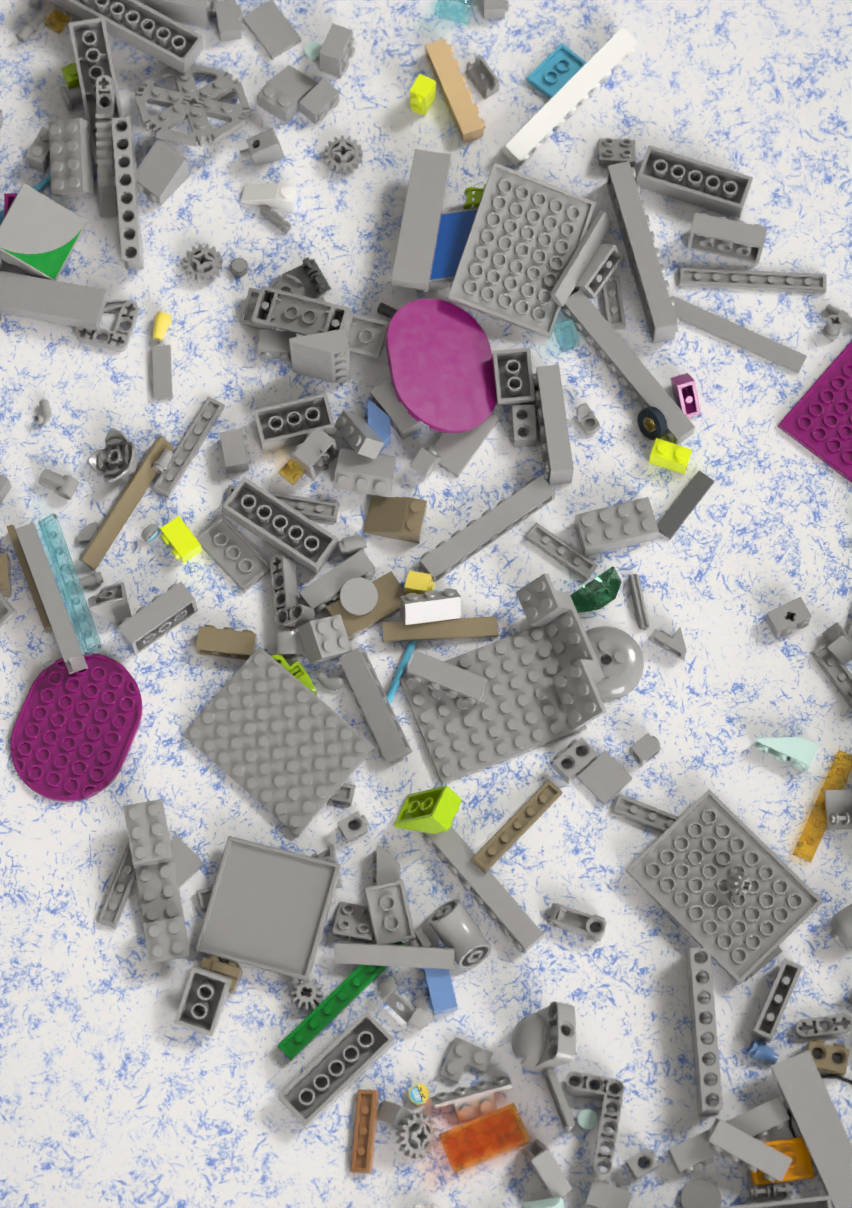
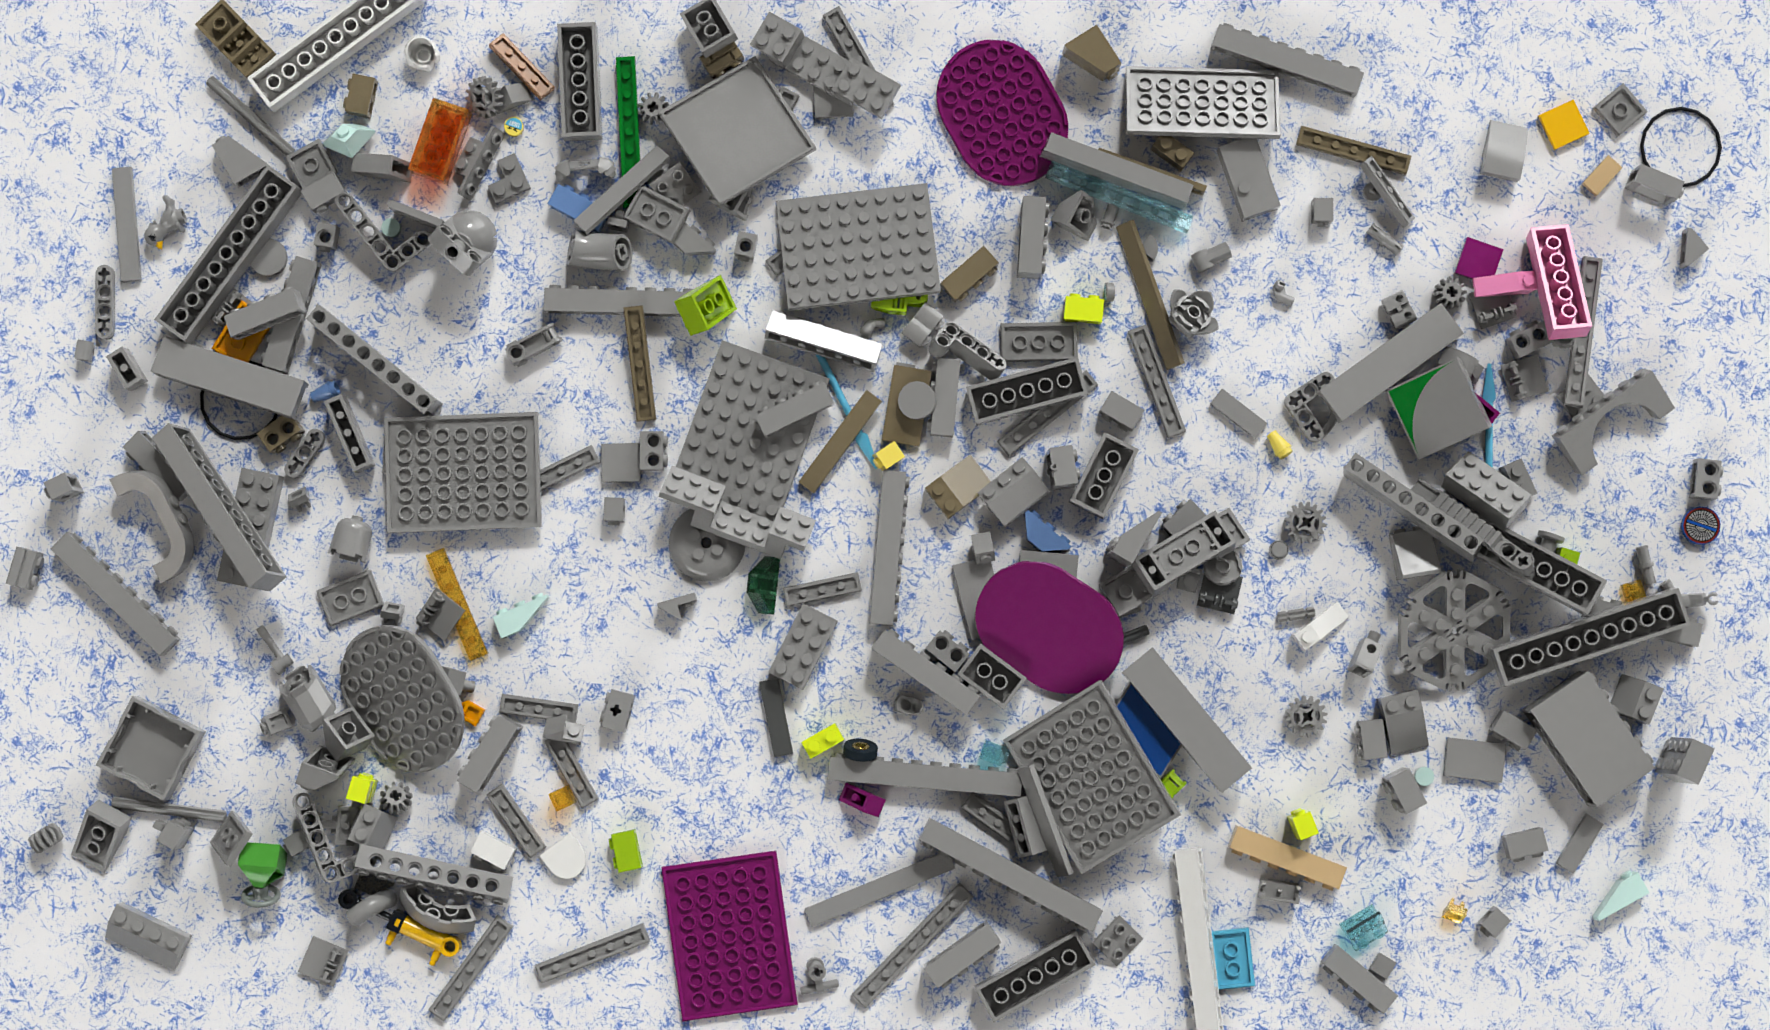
camera: 135 degrees right, 15 degrees up
(162, 462) = (1159, 349): light grey pin -> none
(292, 472) = (1064, 437): clear yellow tile -> none
(325, 639) = (904, 345): light grey brick -> none
(351, 545) = (965, 434): light grey brick -> none
(359, 434) = (1046, 512): light grey brick -> none
(430, 606) = (861, 447): brick -> none
(638, 601) = (731, 611): light grey axle -> none
(738, 883) = (451, 479): light grey gear -> none

